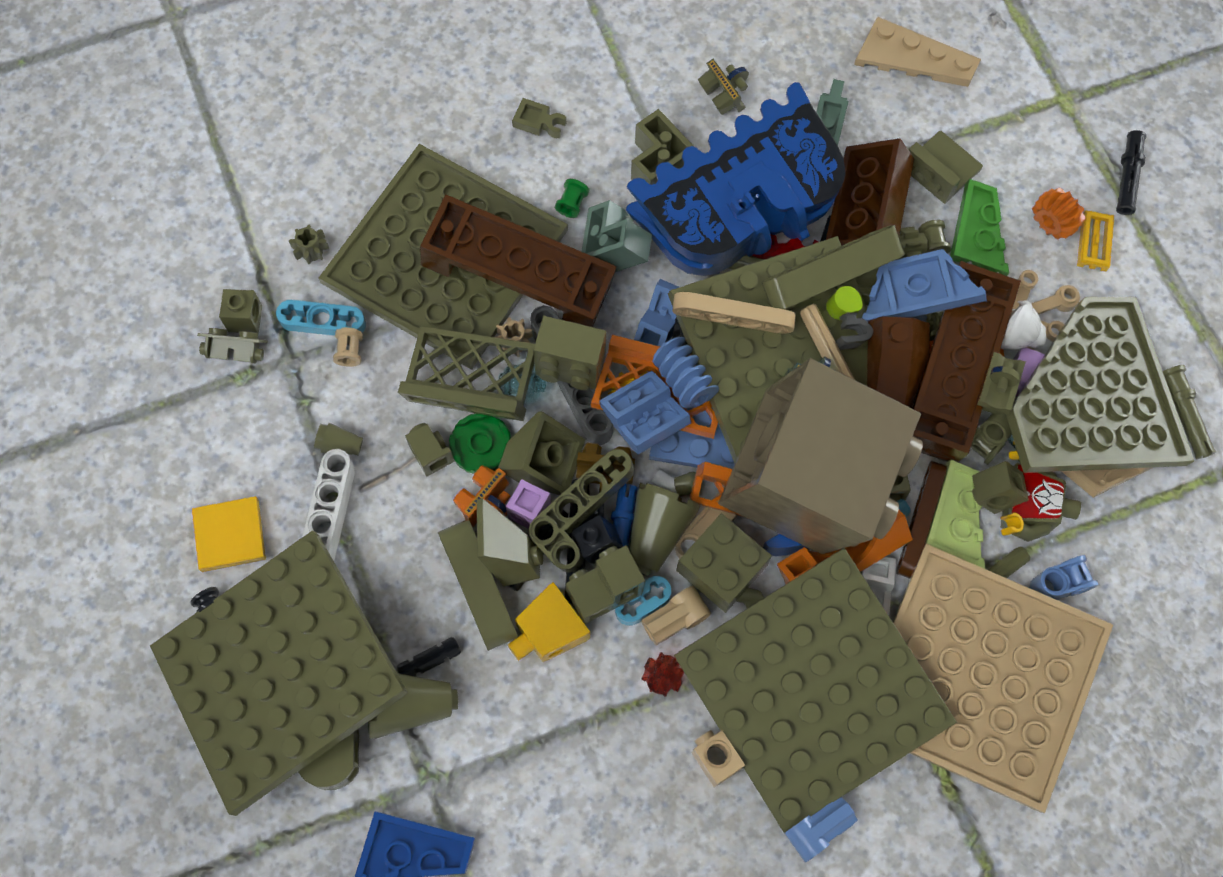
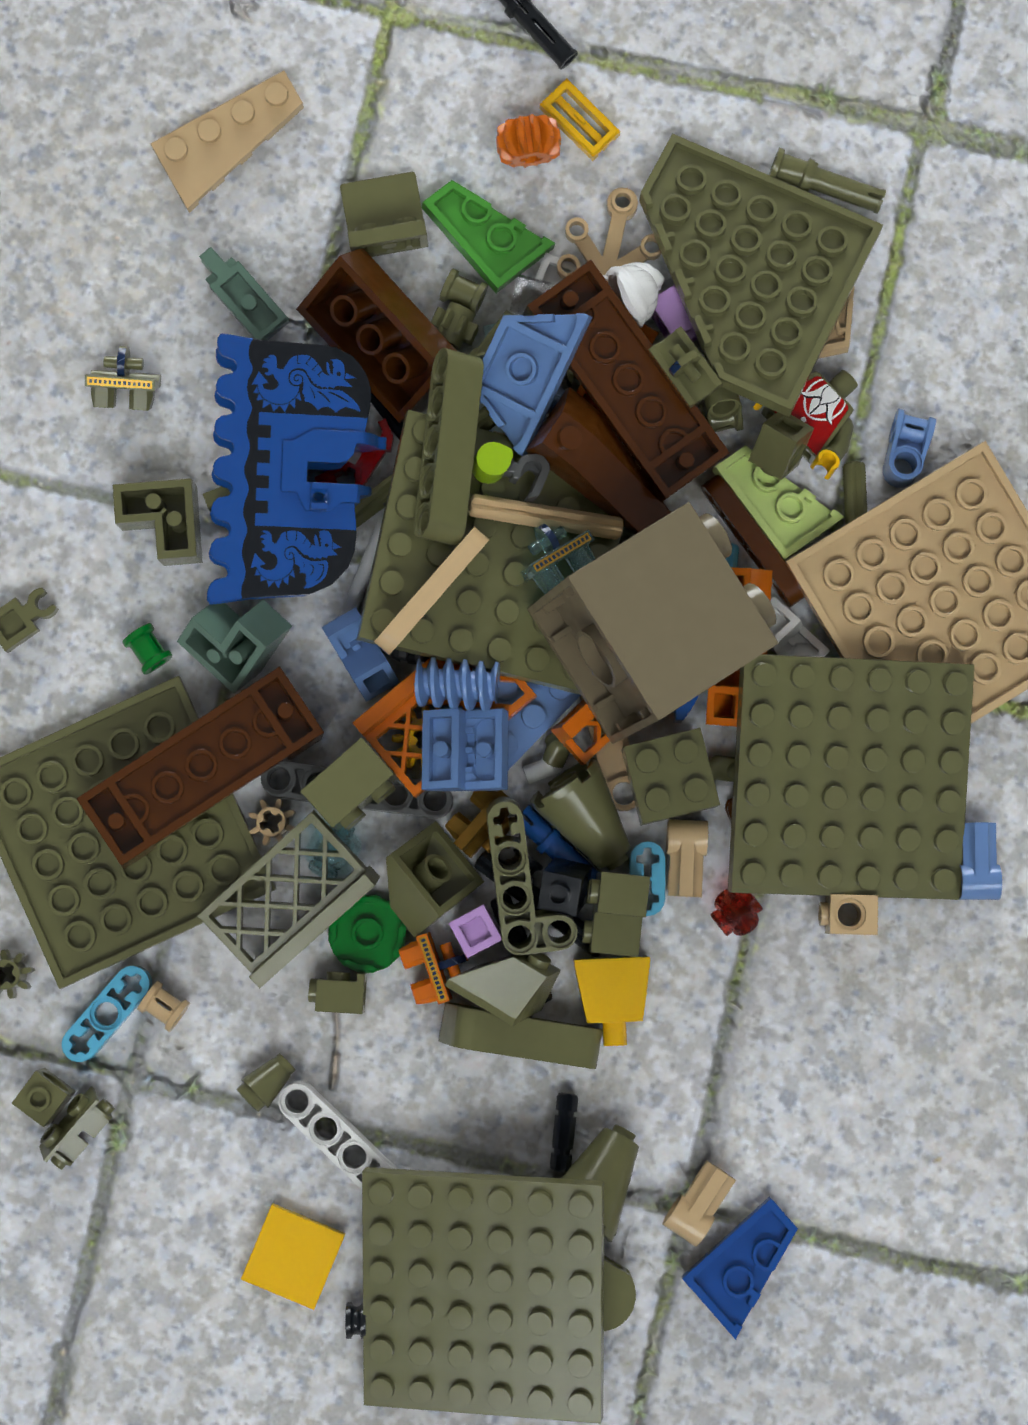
camera: 55 degrees left, 15 degrees up
(428, 788) = (694, 1211): none -> tan piece

